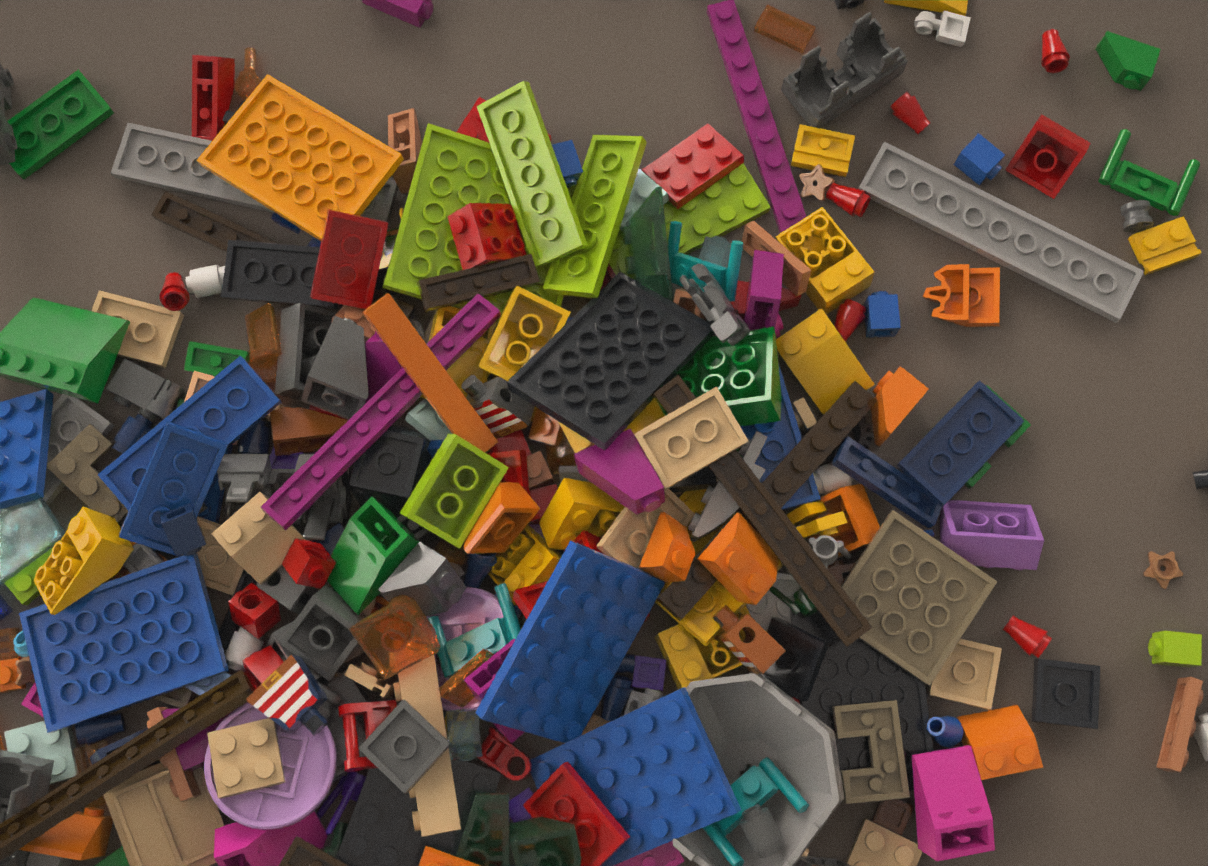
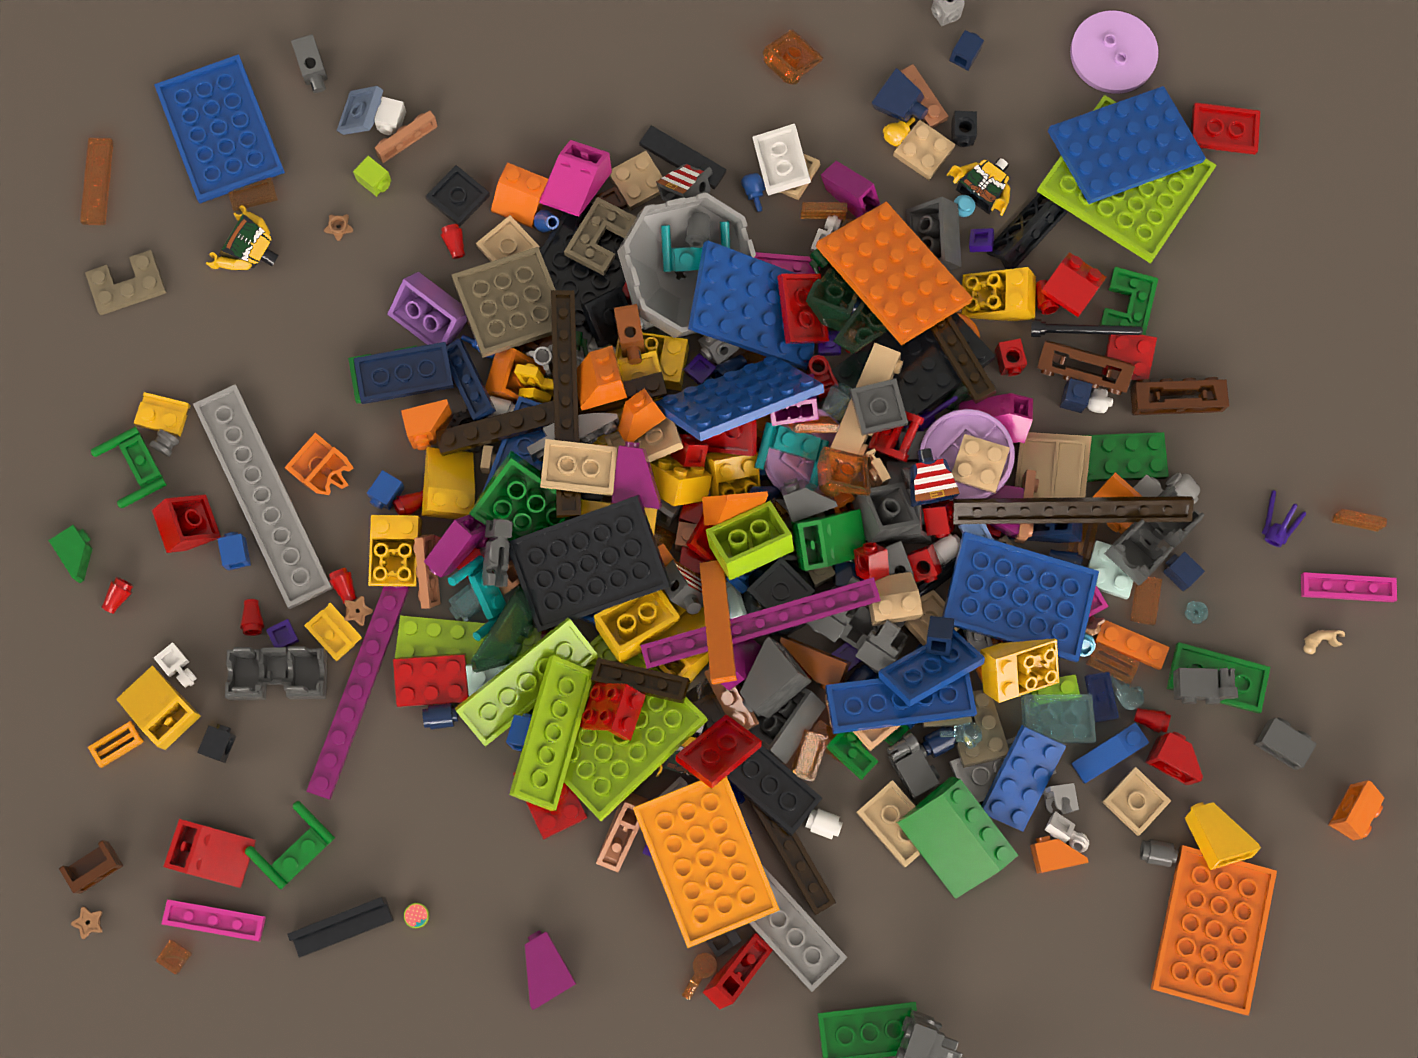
camera: 155 degrees left, 0 degrees up
(101, 454) = (967, 732): none -> clear light blue piece
(174, 292) = (853, 827): red cone -> none
(660, 139) = (439, 716): none -> dark blue brick
(784, 29) = (286, 744): clear orange tile -> none
(868, 116) = (282, 634): none -> dark purple plate

